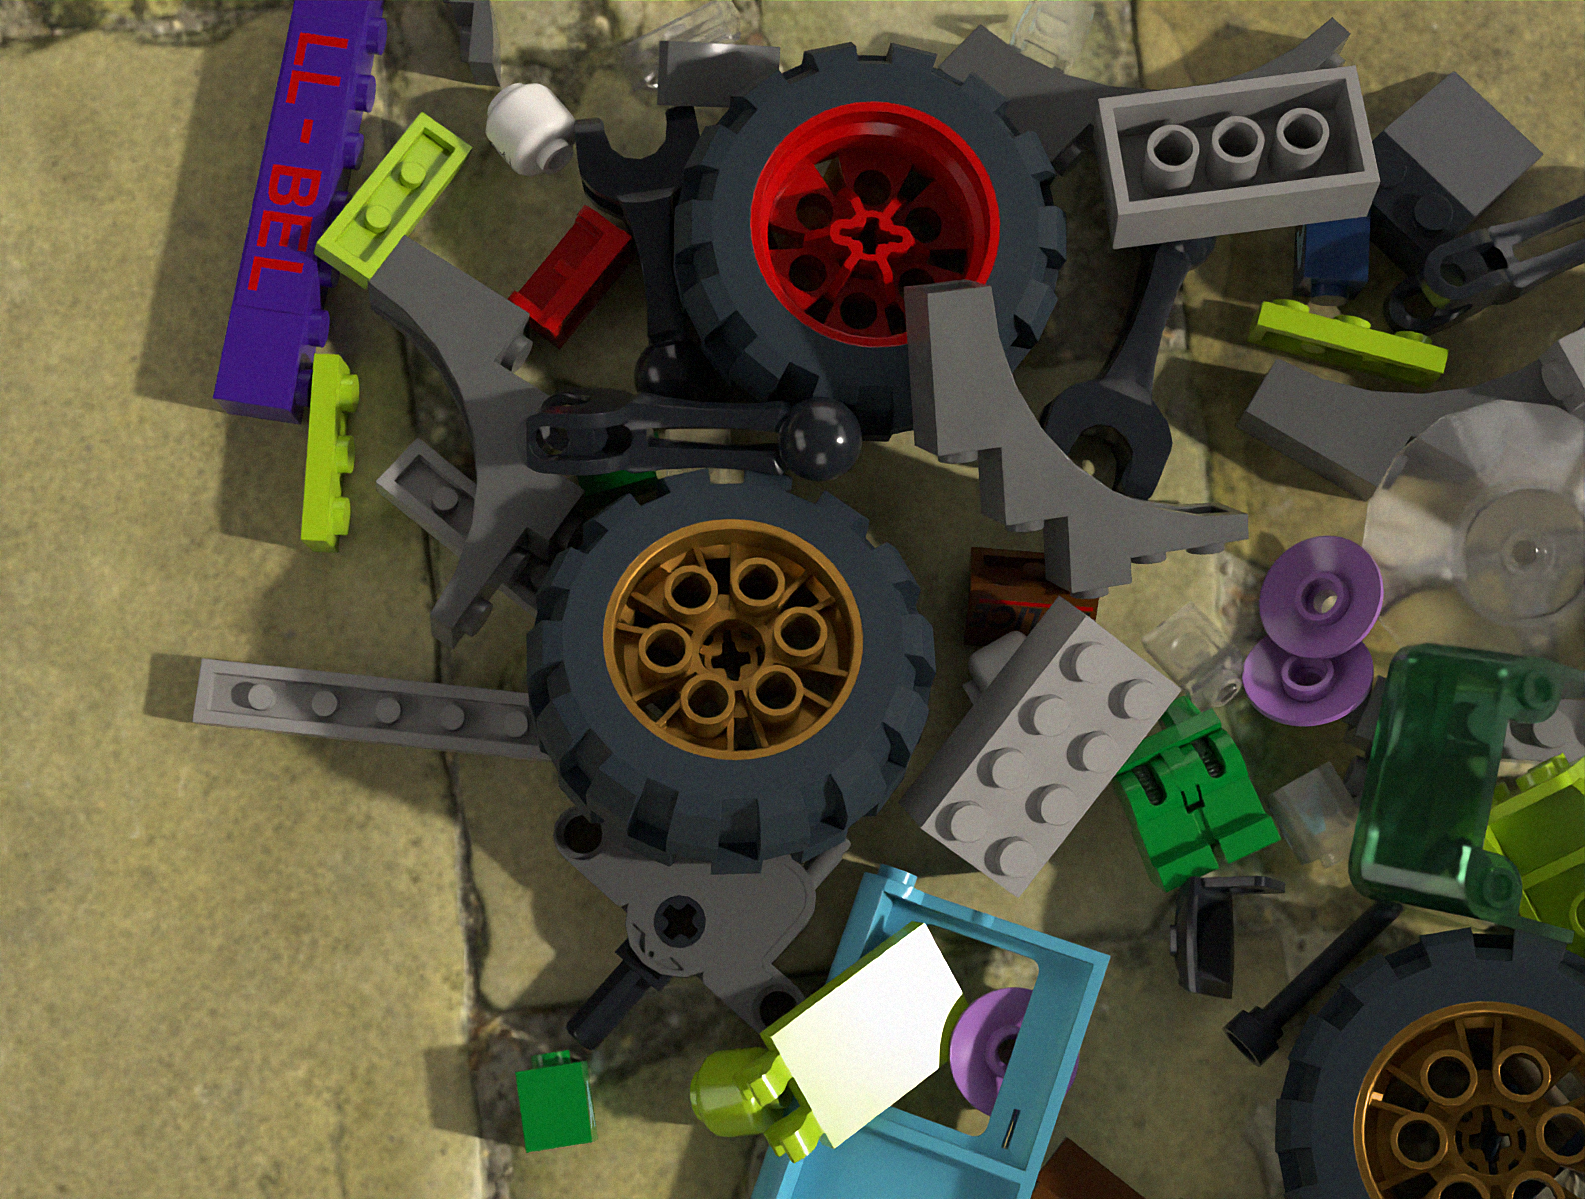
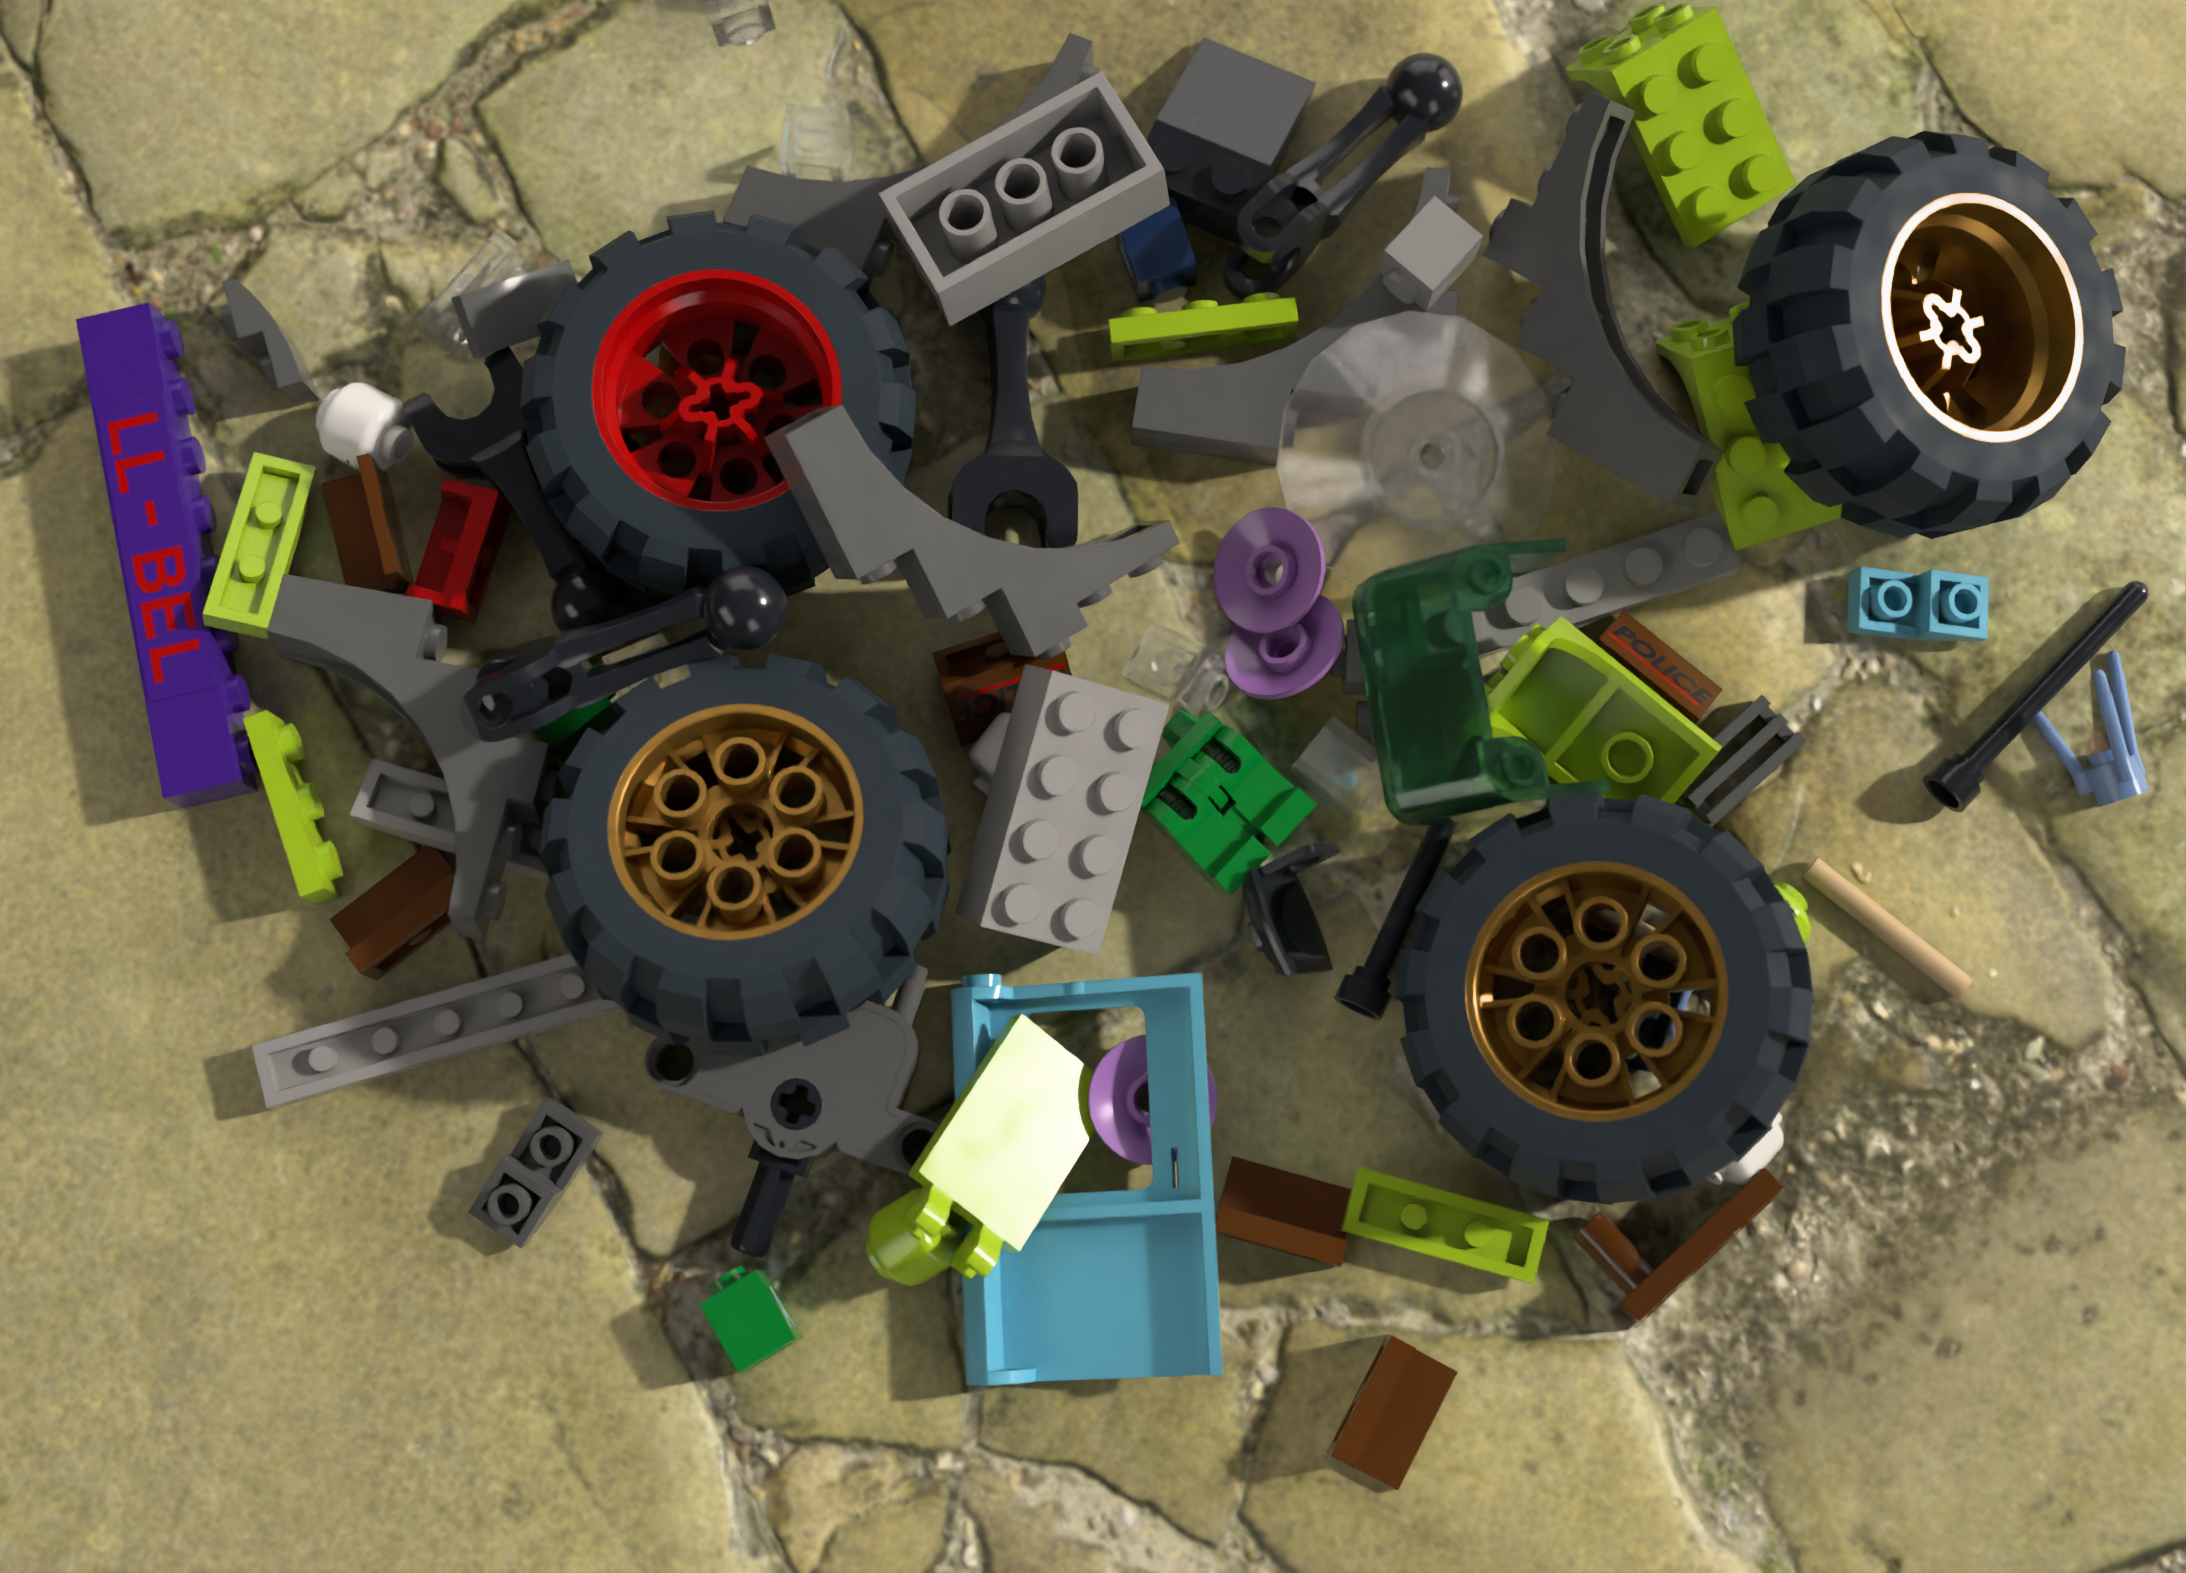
camera: 20 degrees left, 0 degrees up
(384, 589) = (398, 913): none -> reddish brown panel
(413, 883) = (536, 1172): none -> dark grey slope
(496, 224) = (368, 529): none -> reddish brown panel

